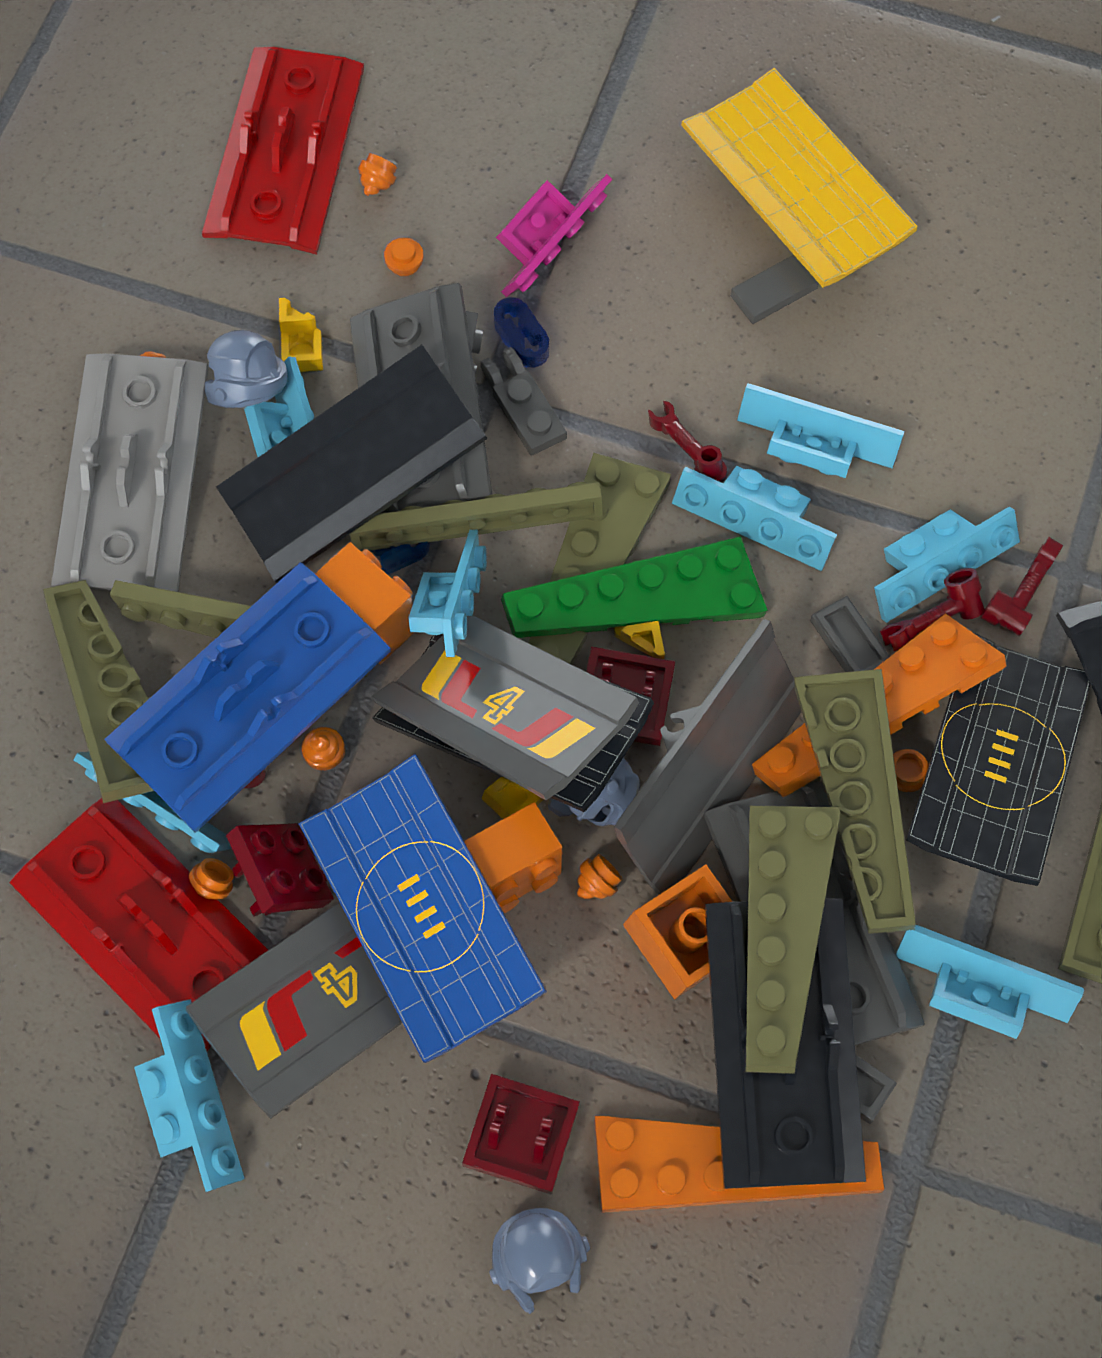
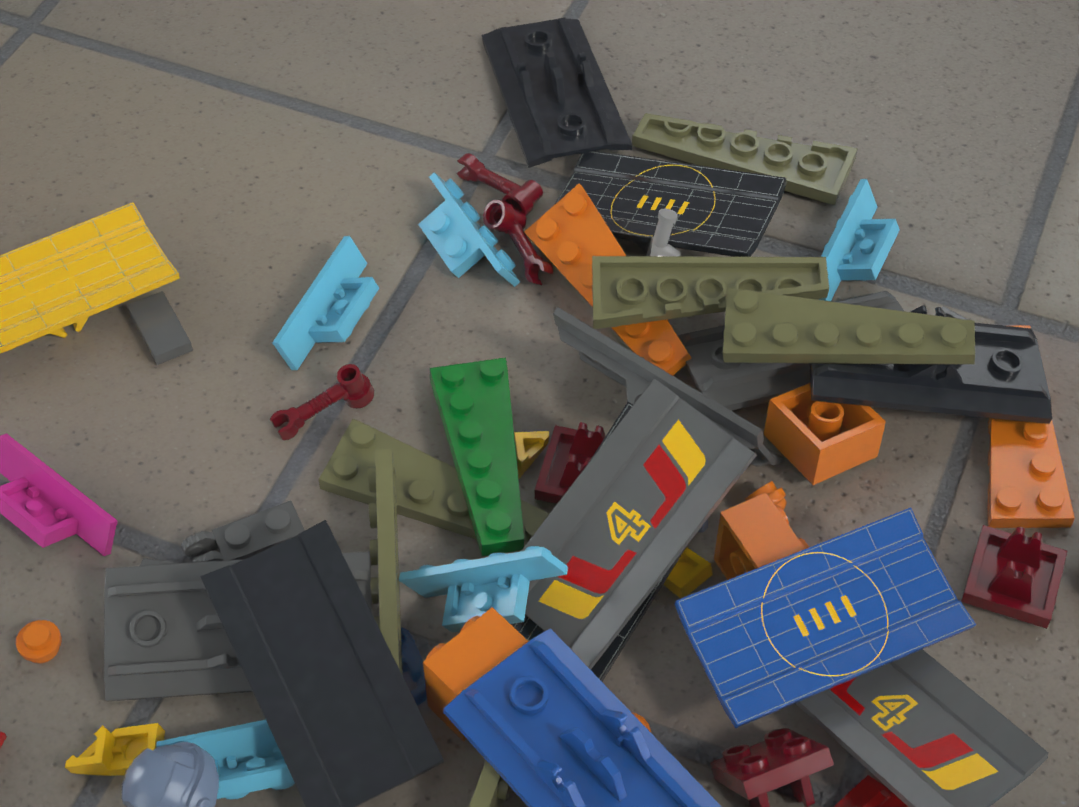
camera: 85 degrees left, 15 degrees down
(527, 328) = (159, 535): clear blue beam -> none
(757, 511) = (403, 355): medium azure bracket -> none
(849, 636) = (536, 305): dark grey tile -> none
(914, 752) = (659, 243): none -> light grey bar

